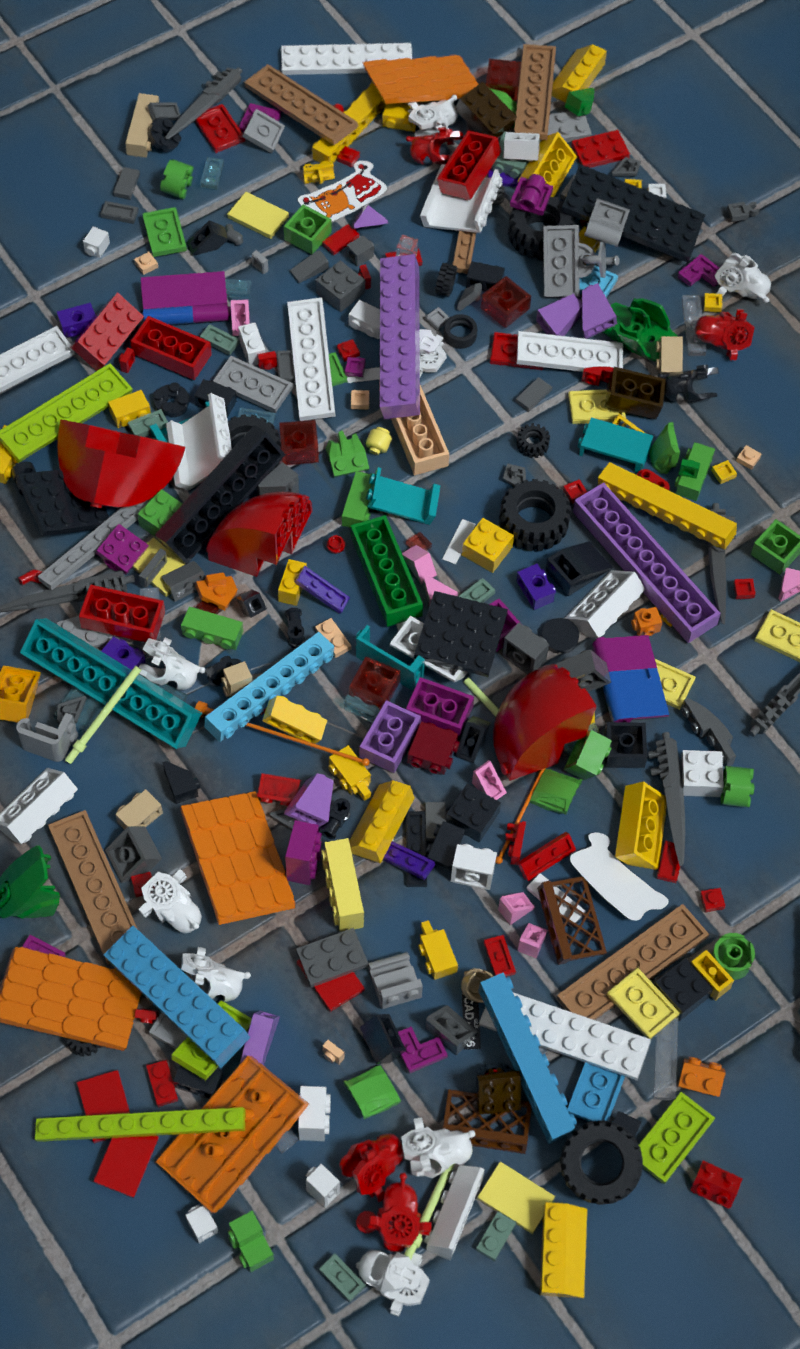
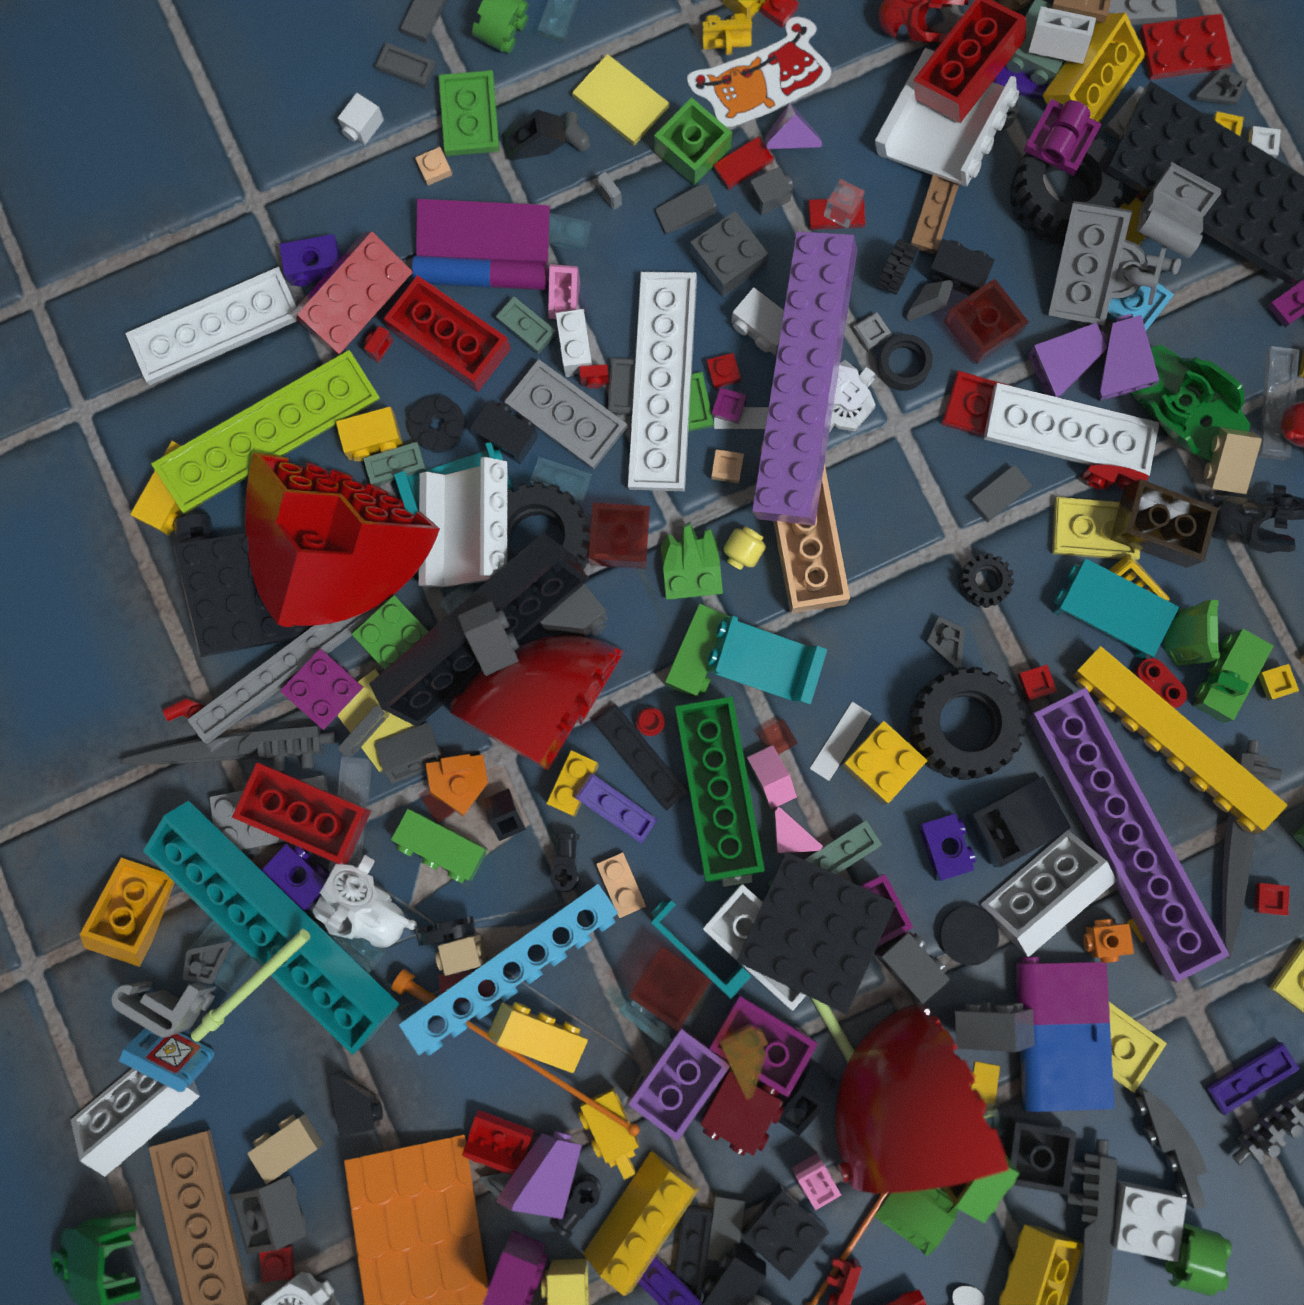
camera: 15 degrees right, 20 degrees up
(41, 762) = (169, 1060): none -> dark azure container
(230, 486) = (488, 637): none -> dark grey brick
(333, 565) = (641, 757): none -> black tile
(364, 273) = (769, 240): red plate -> none
(428, 703) = (745, 1055): none -> clear yellow slope
(753, 690) = (1252, 1078): none -> dark purple tile

